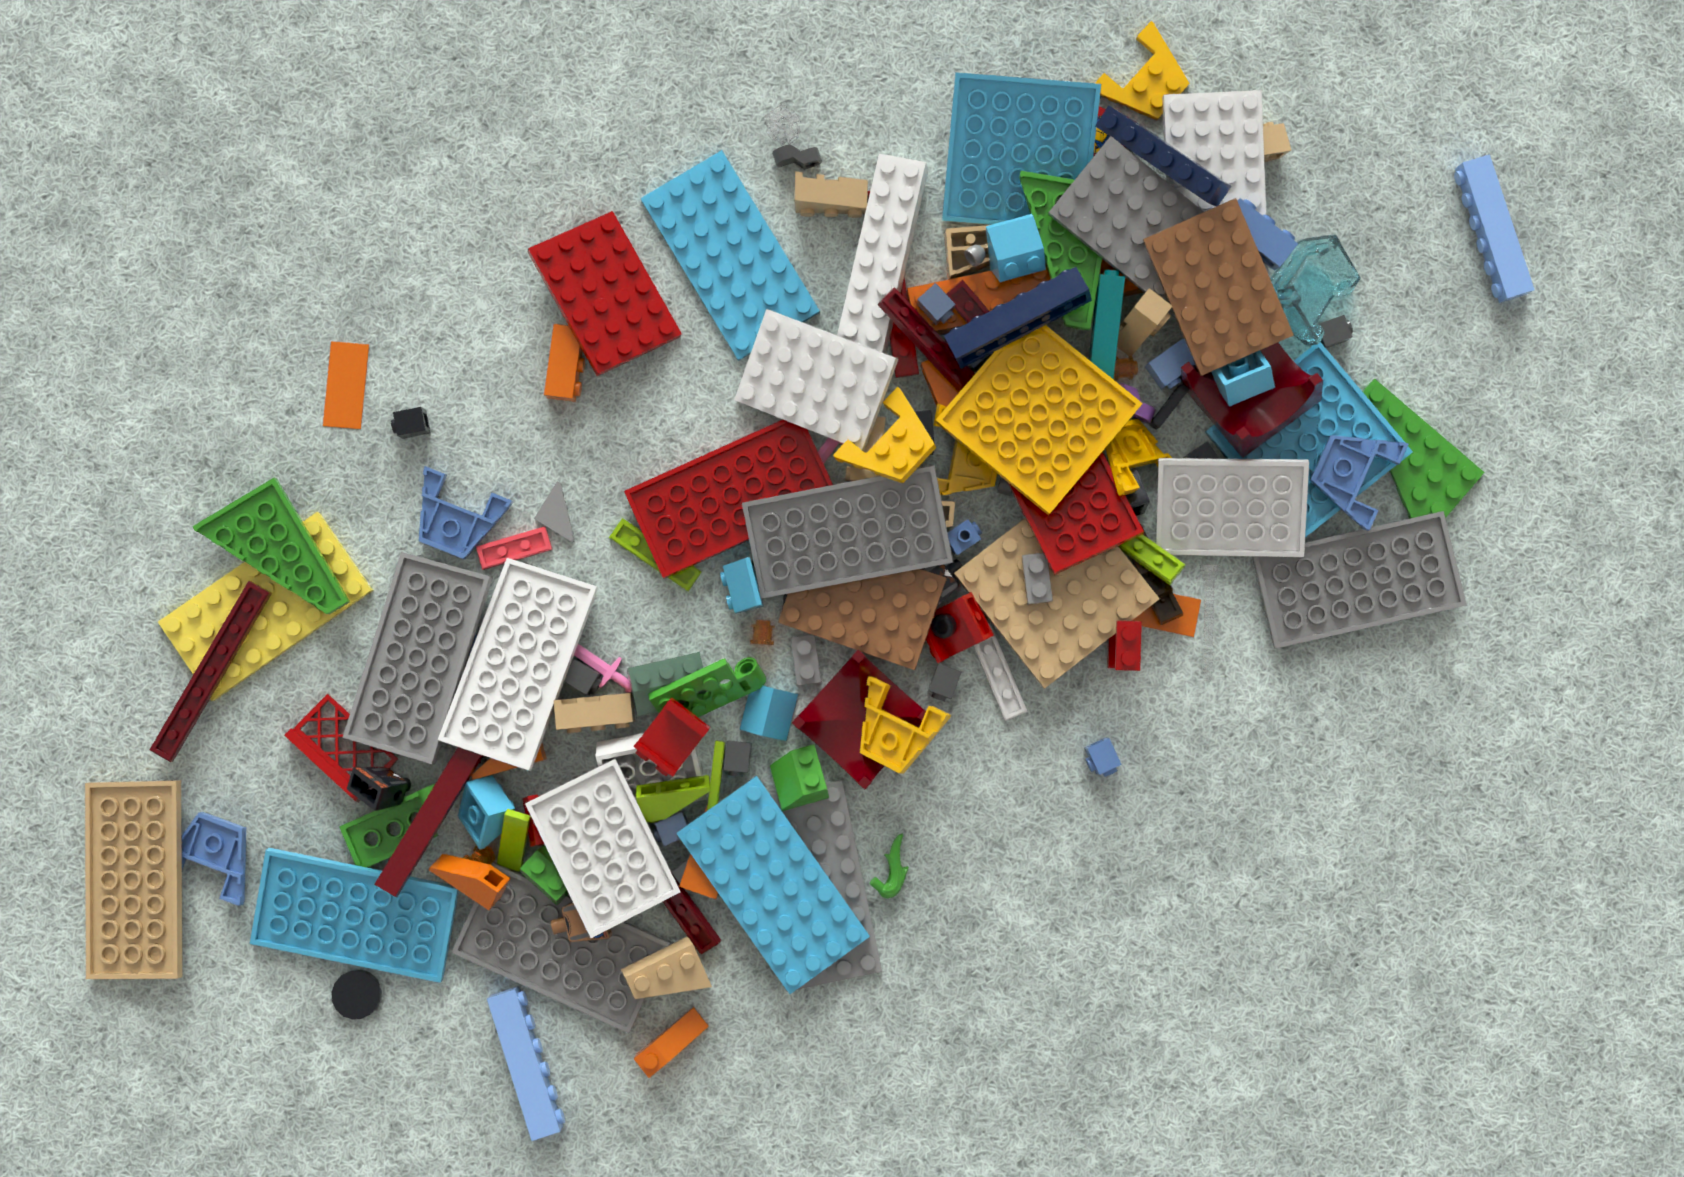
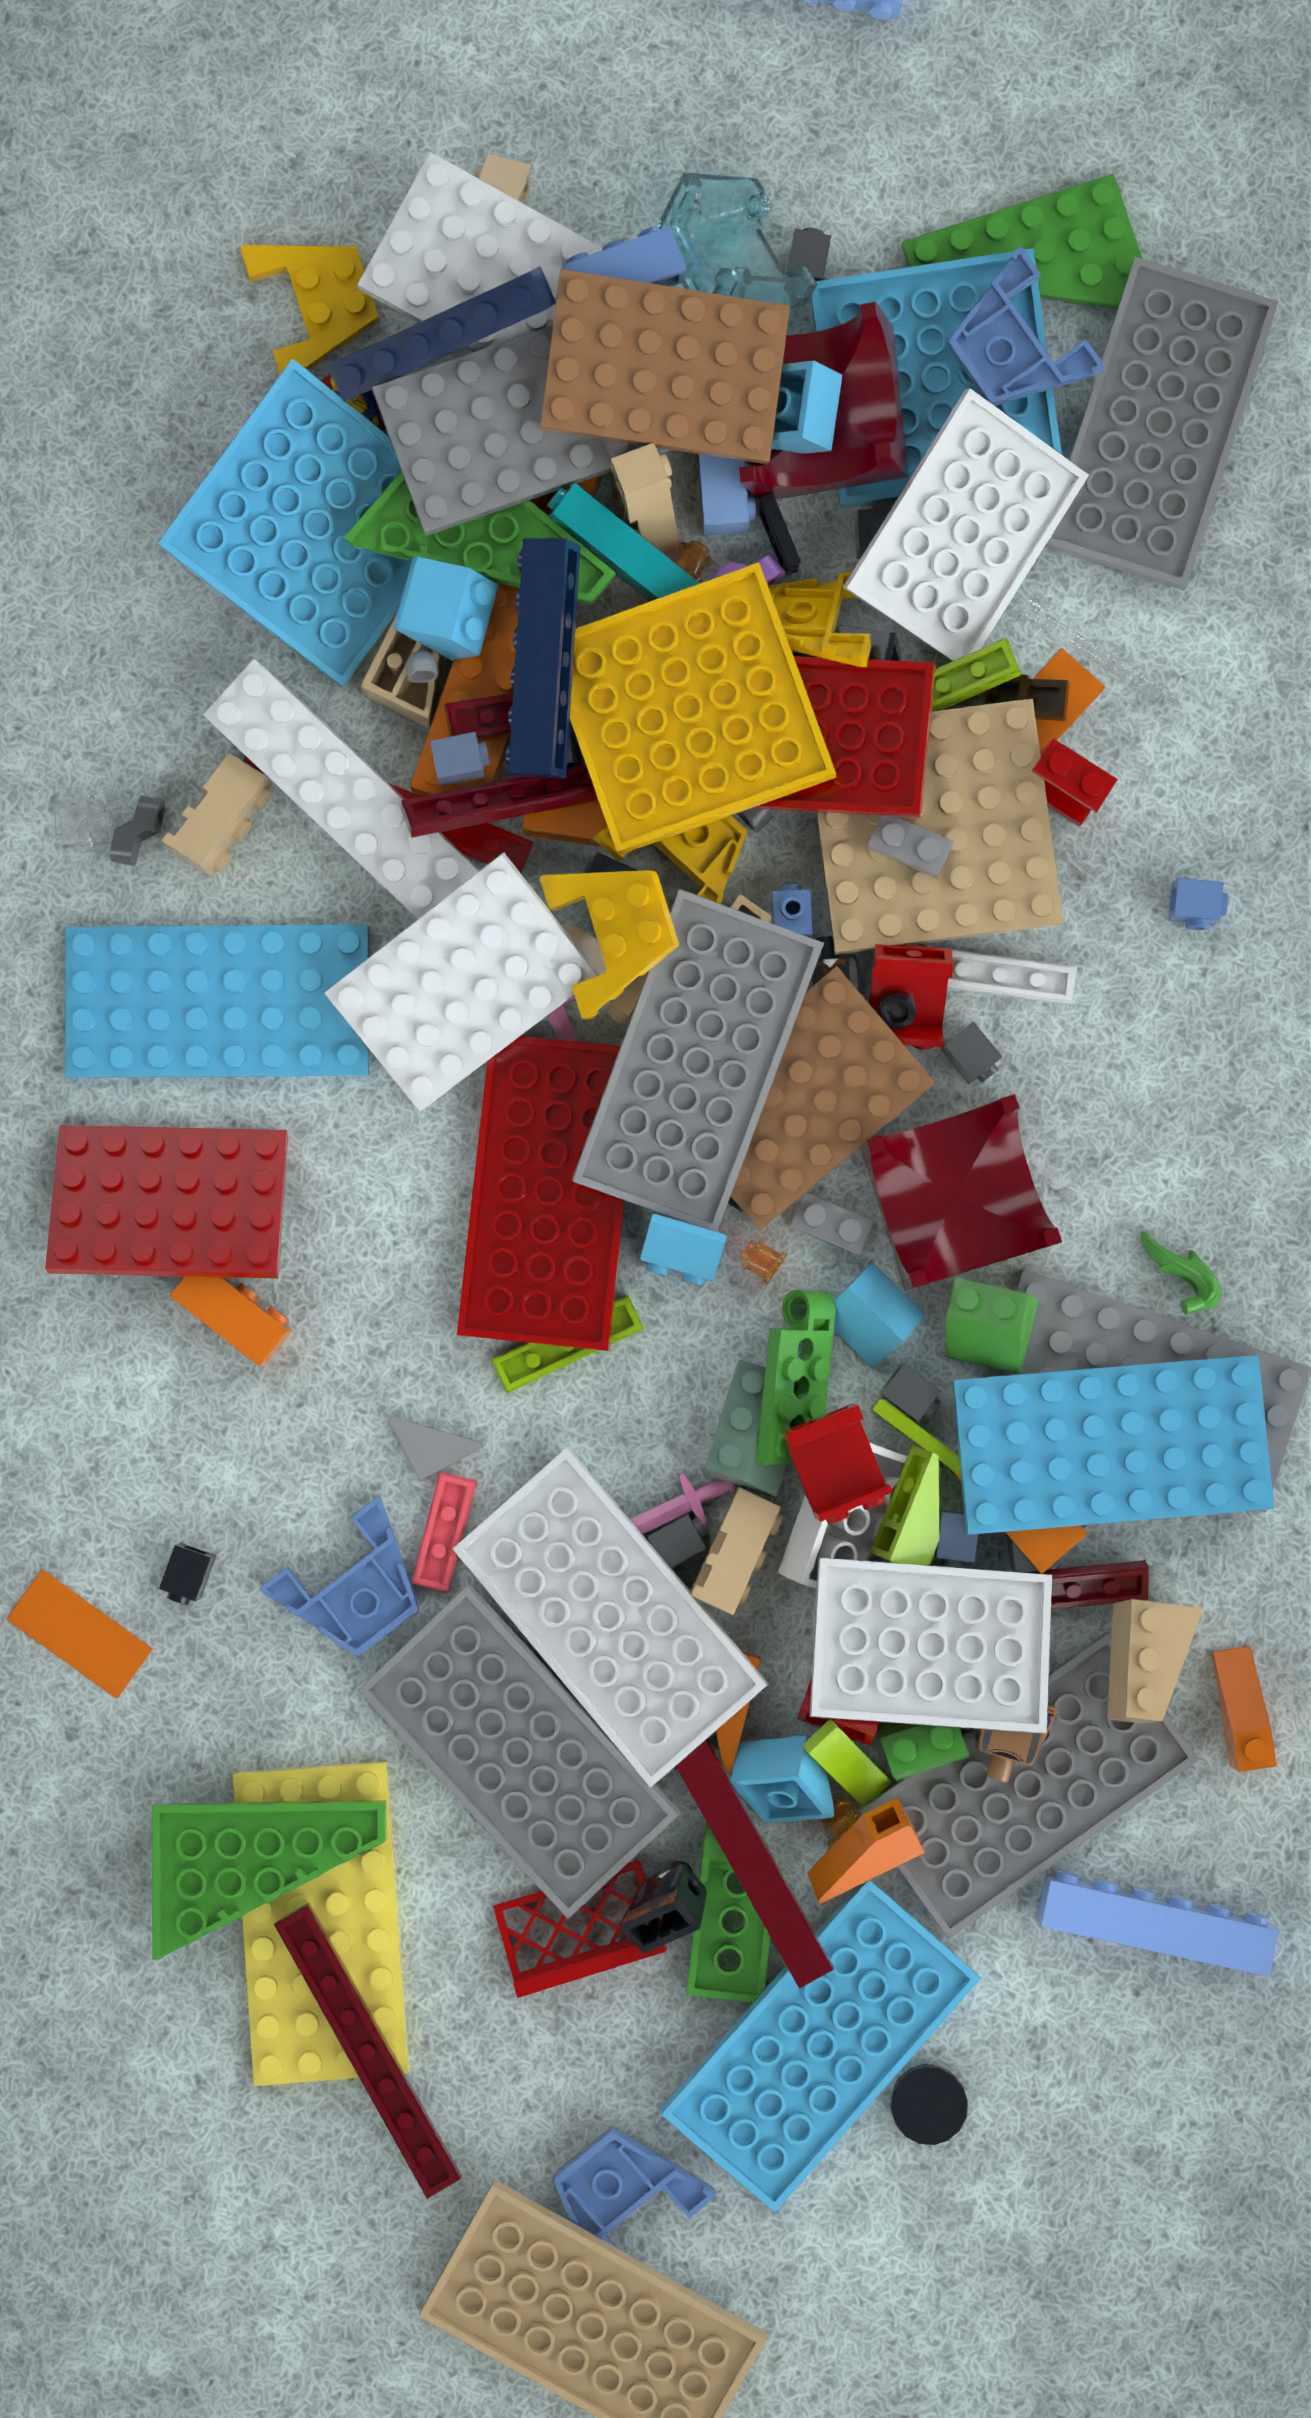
camera: 60 degrees left, 0 degrees up
(891, 738) = (1012, 1167): yellow wing -> none

